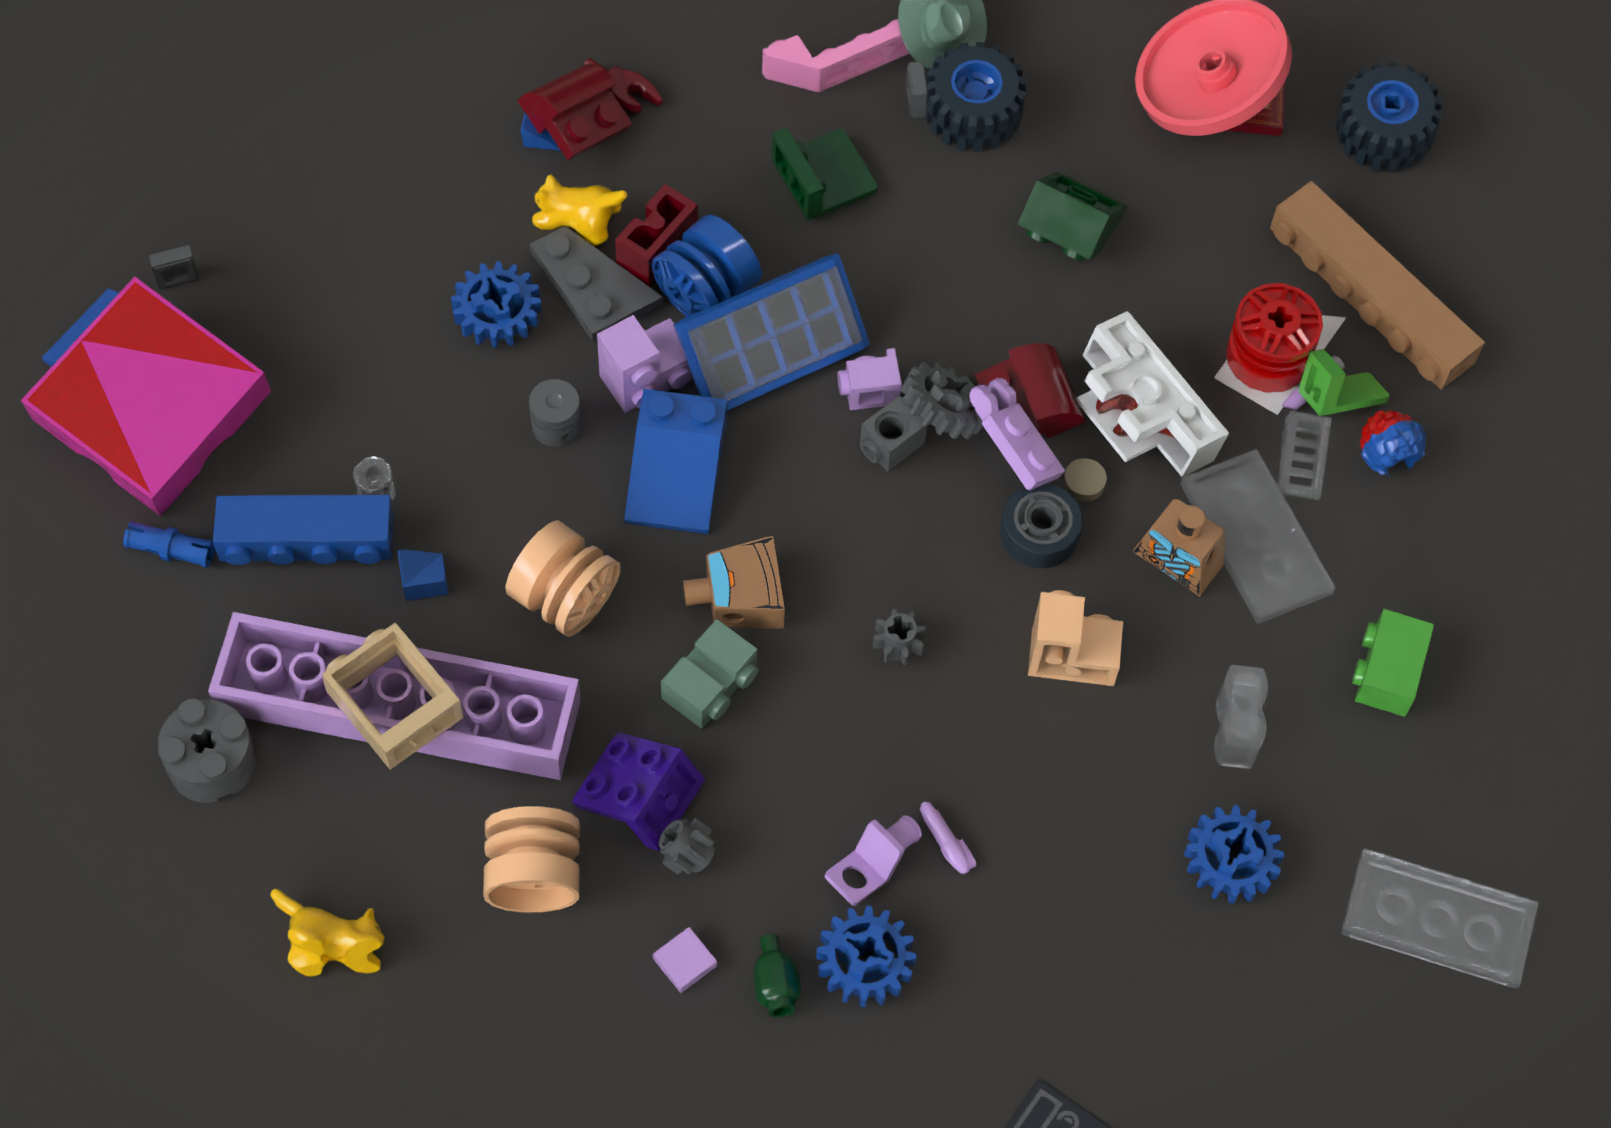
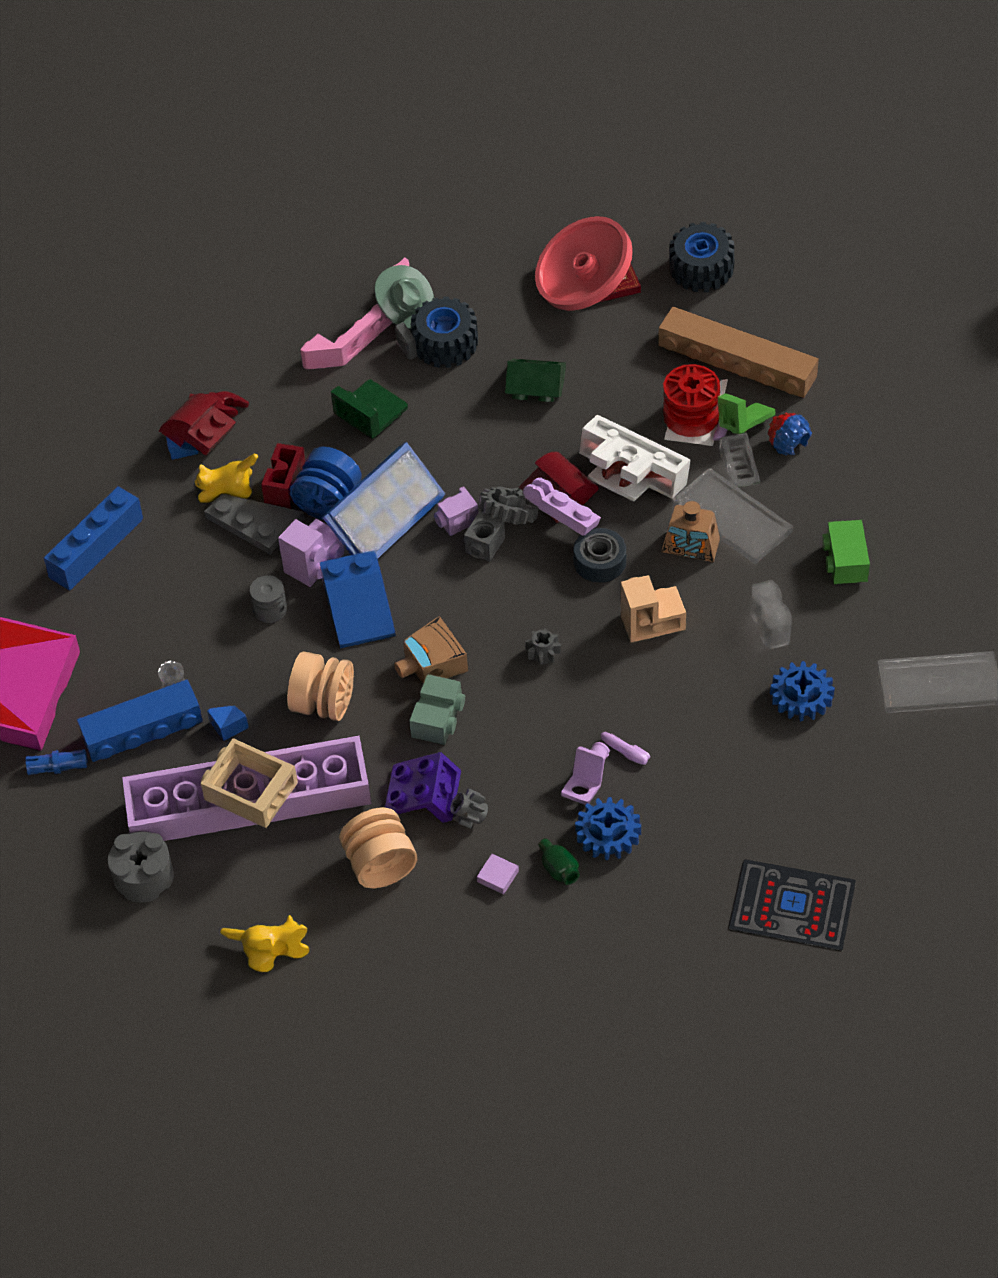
camera: 15 degrees left, 10 degrees down
(363, 227) = (93, 538): none -> blue brick
(481, 316) = (200, 552): blue gear -> none
(1085, 479) = (614, 520): dark tan tile -> none

